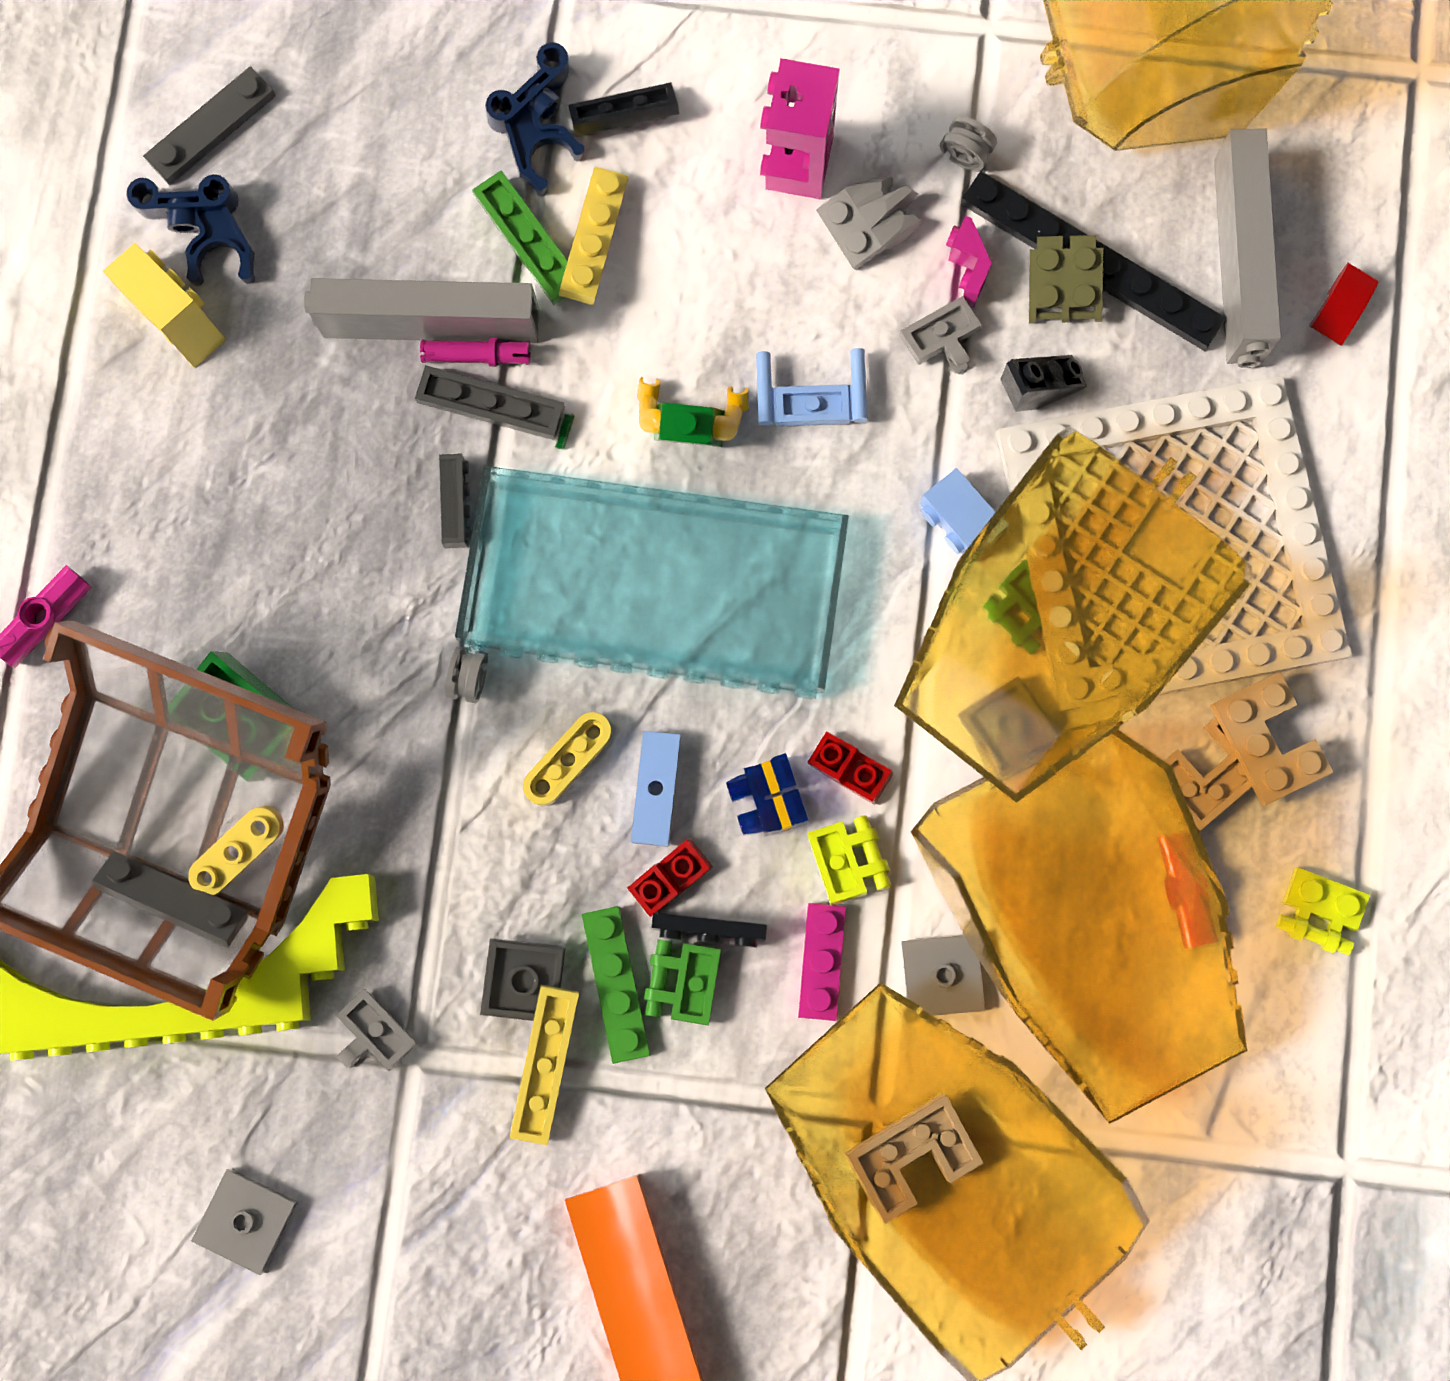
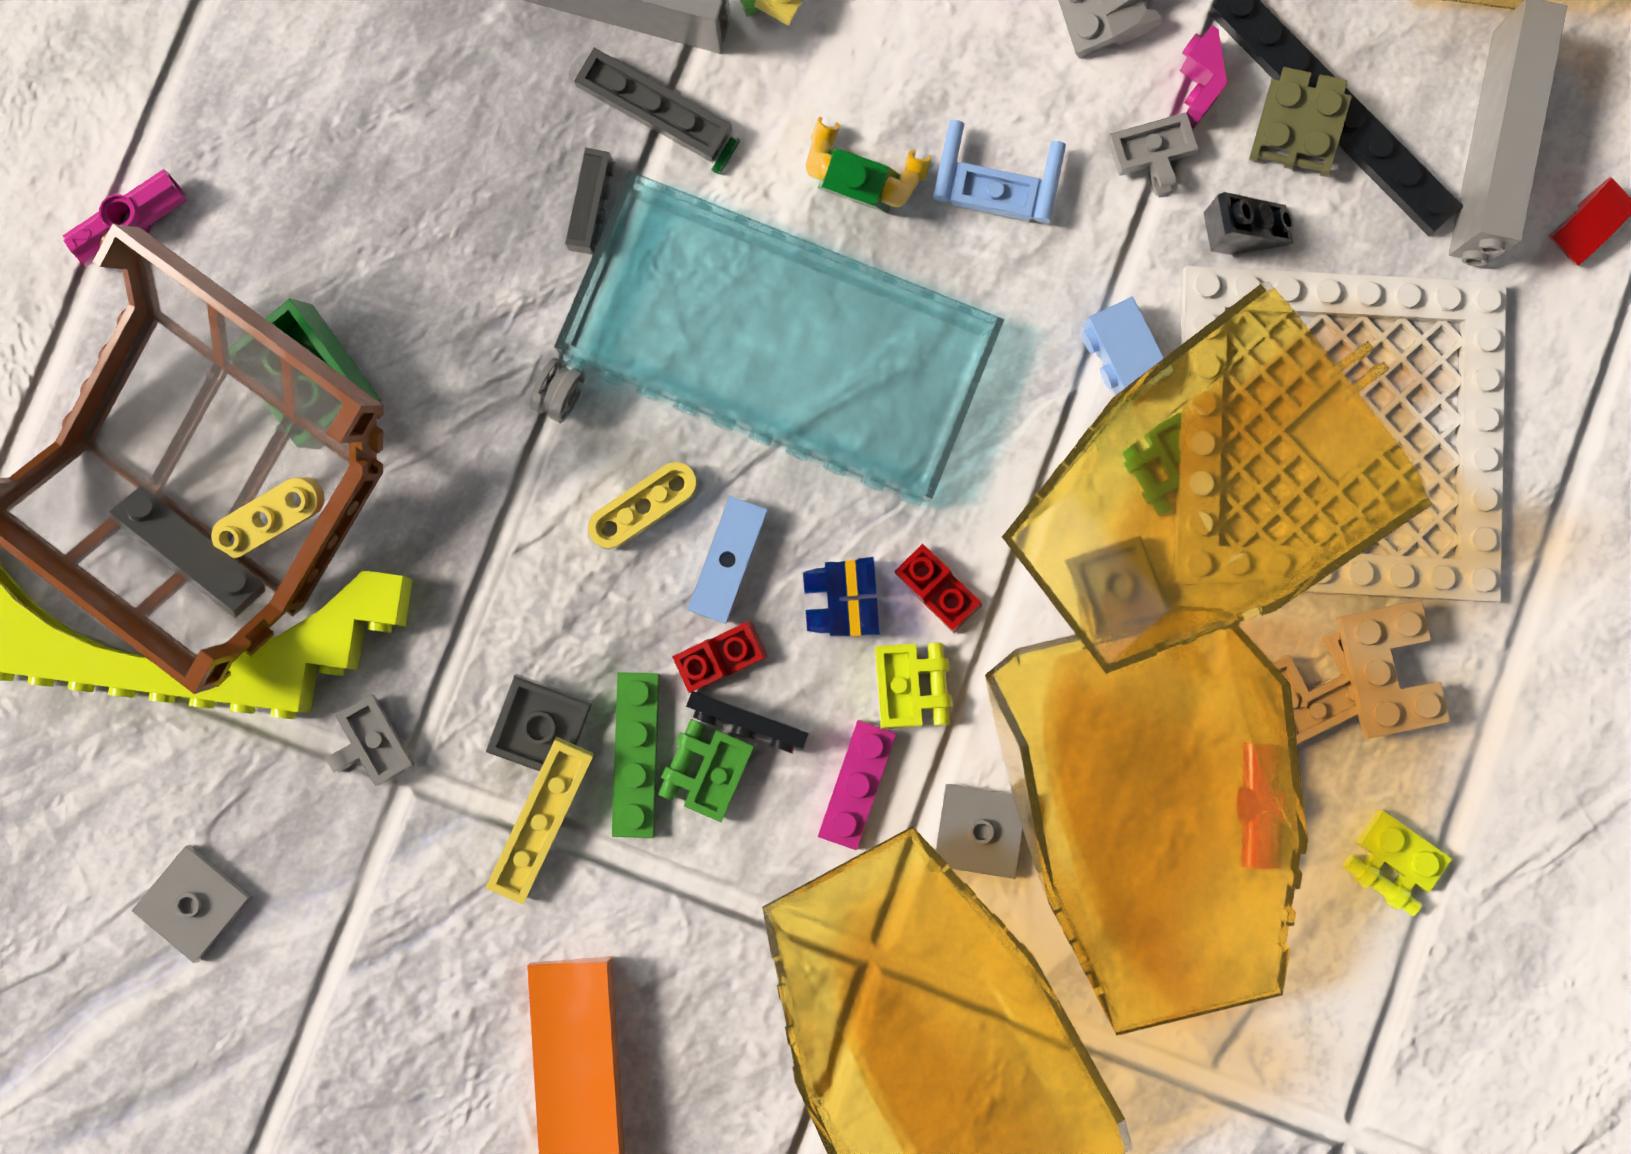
camera: 10 degrees right, 5 degrees up
(488, 352) = (666, 50): dark pink pin -> none
(926, 1129) = (874, 1002): tan plate -> none

